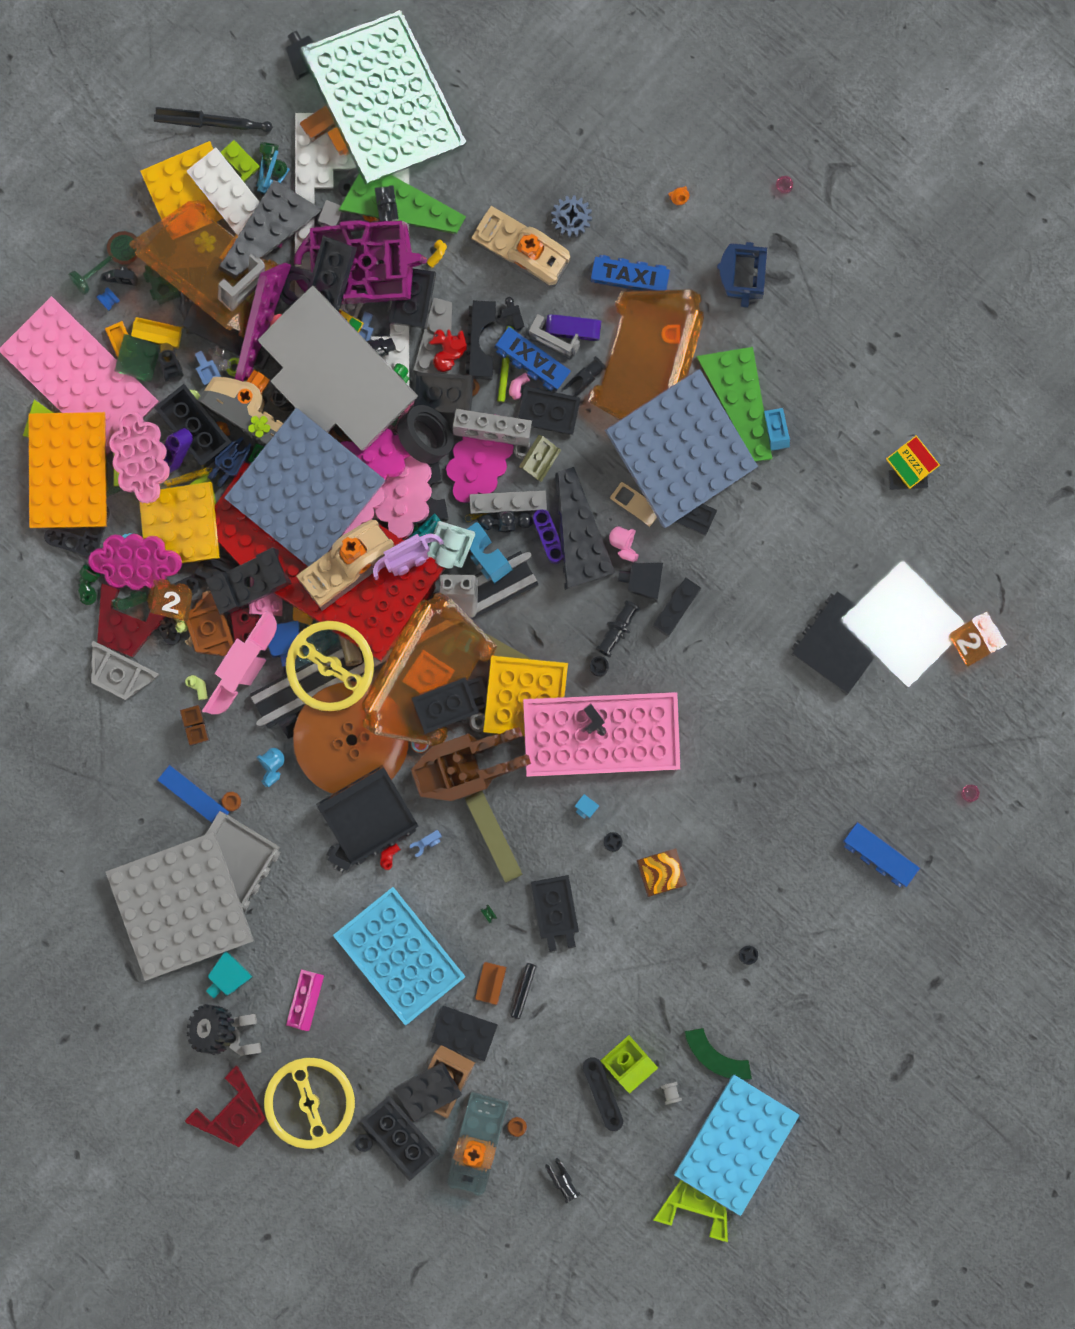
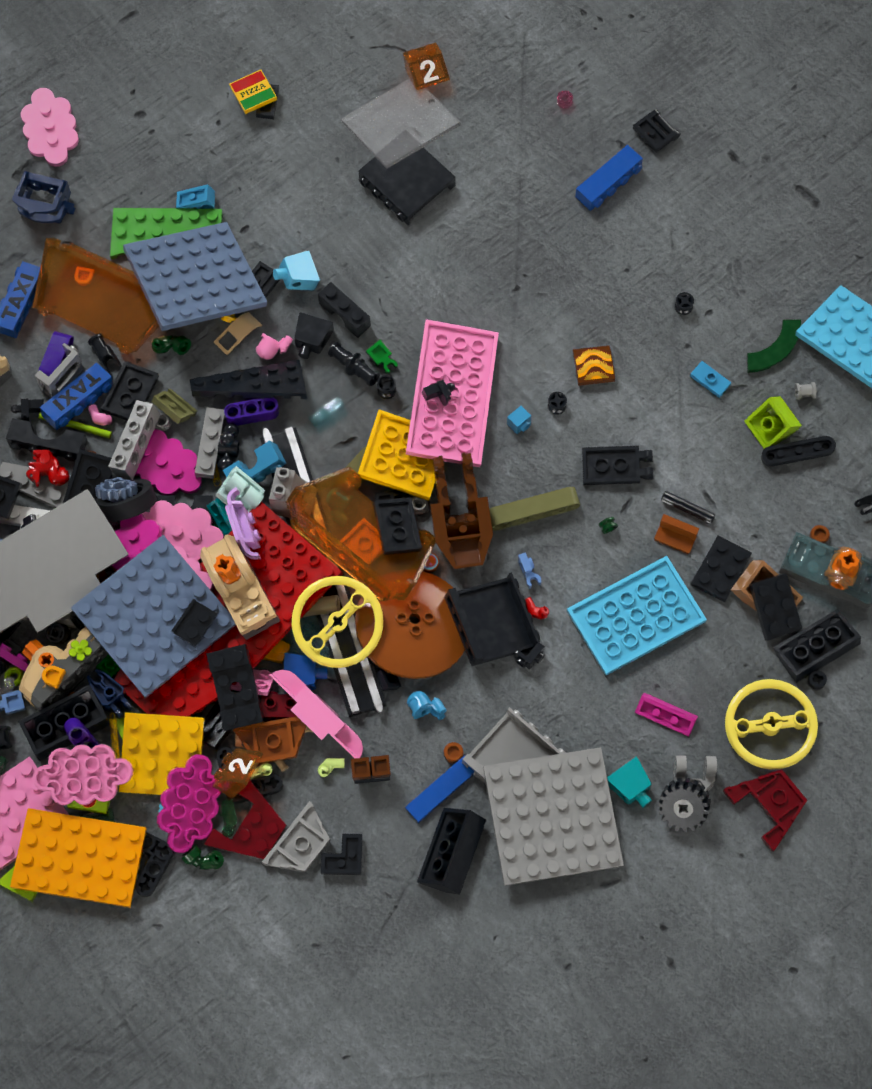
camera: 85 degrees left, 15 degrees down
(109, 722) = (347, 862): none -> black plate
(134, 816) = (451, 850): none -> black slope
(228, 406) = (53, 676): none -> light orange tile
(301, 529) = (194, 623): none -> black plate
(430, 423) = (116, 489): none -> sand blue gear
(563, 611) = (326, 411): none -> clear light blue axle
(607, 448) = (179, 344): none -> dark green arm
(635, 653) = (380, 354): none -> green plate
(668, 994) = (710, 379): none -> dark azure plate
(709, 551) = (298, 272): none -> medium azure torso
(837, 258) = (49, 127): none -> bright pink plate
(944, 892) = (652, 133): none -> black plate

